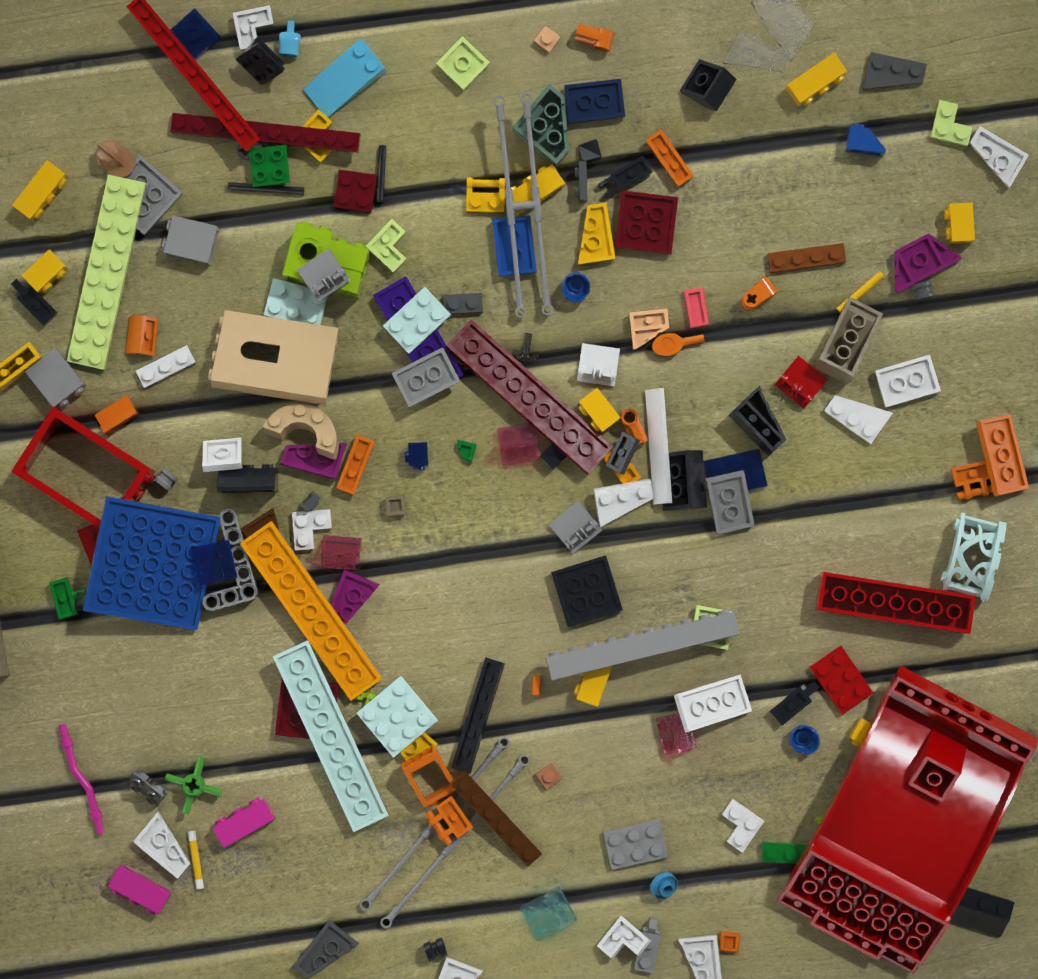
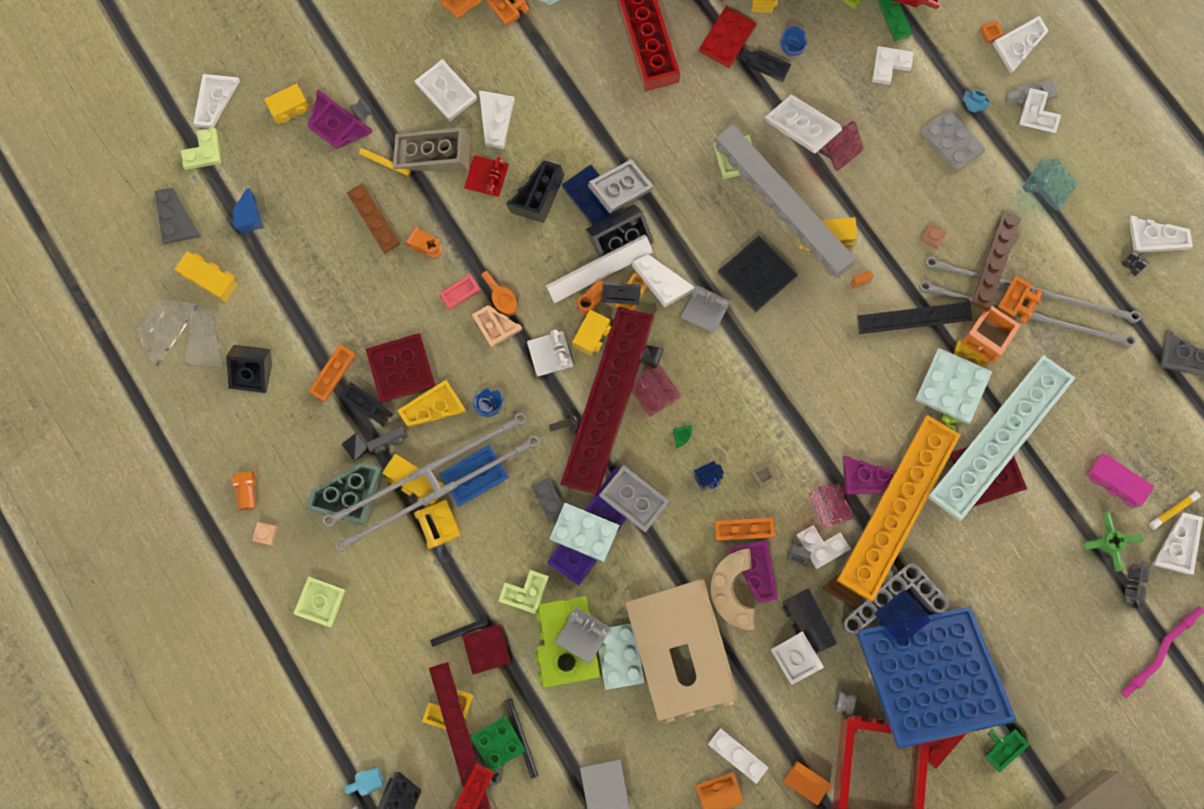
camera: 110 degrees left, 10 degrees down
(345, 78) = (380, 709): medium azure slope -> none
(594, 101) = (305, 462): dark blue plate -> none

